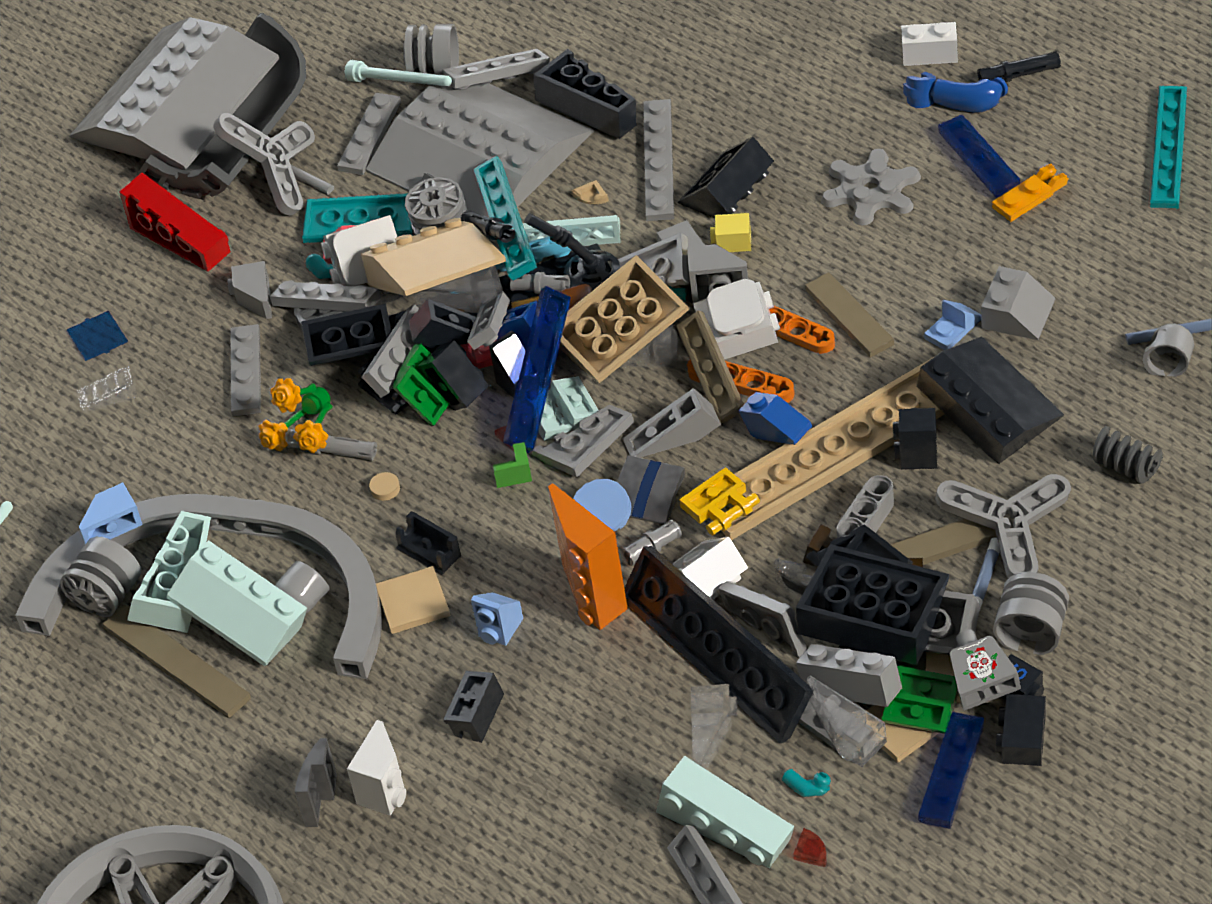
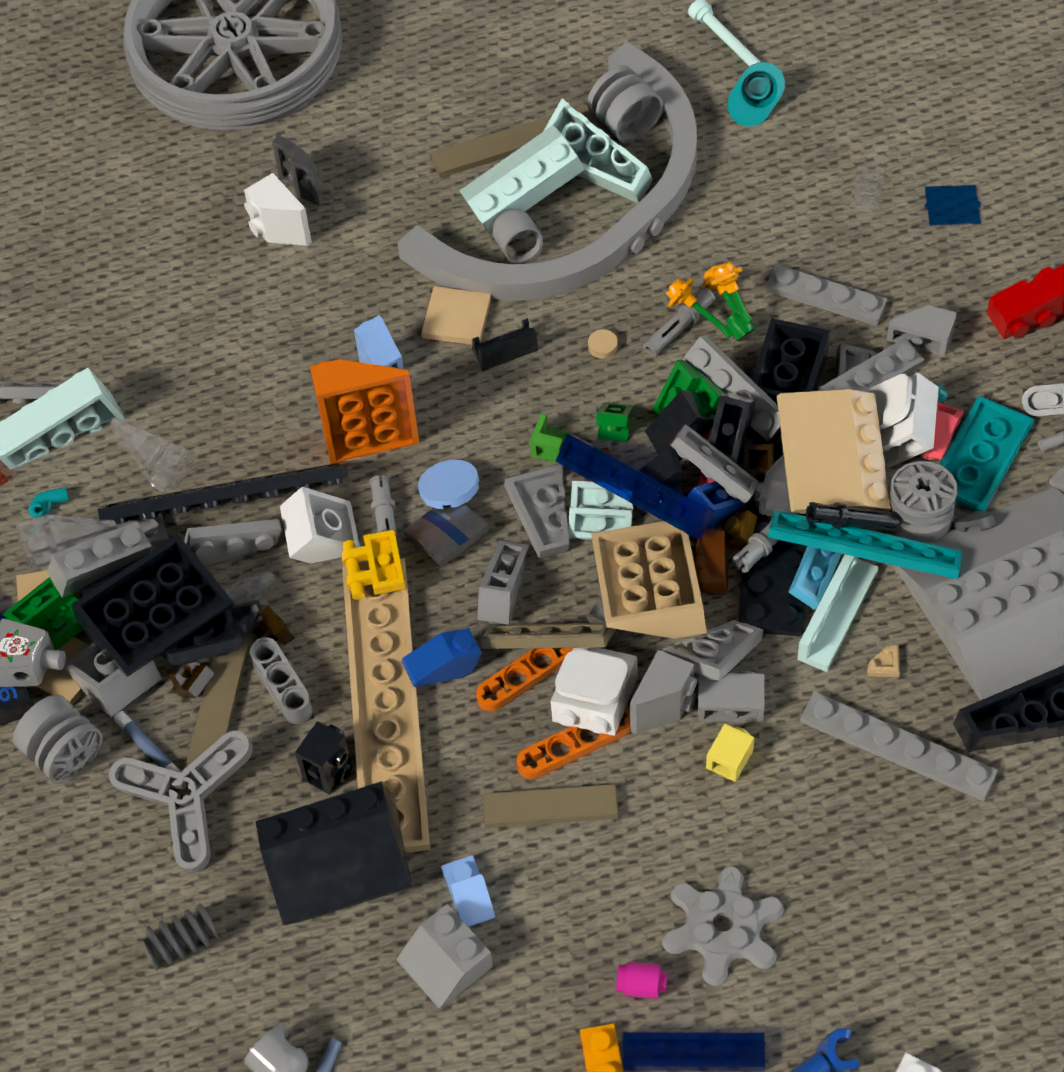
camera: 115 degrees right, 10 degrees up
(31, 503) = (756, 94): none -> teal piece
(110, 514) = (682, 121): light blue slope -> none
(464, 432) = (614, 421): none -> green slope
(474, 705) = (302, 307): black hinge -> none
(589, 262) = (755, 584): black dish -> none
(728, 179) = (814, 785): black slope -> none
(949, 201) = (641, 980): none -> dark pink brick

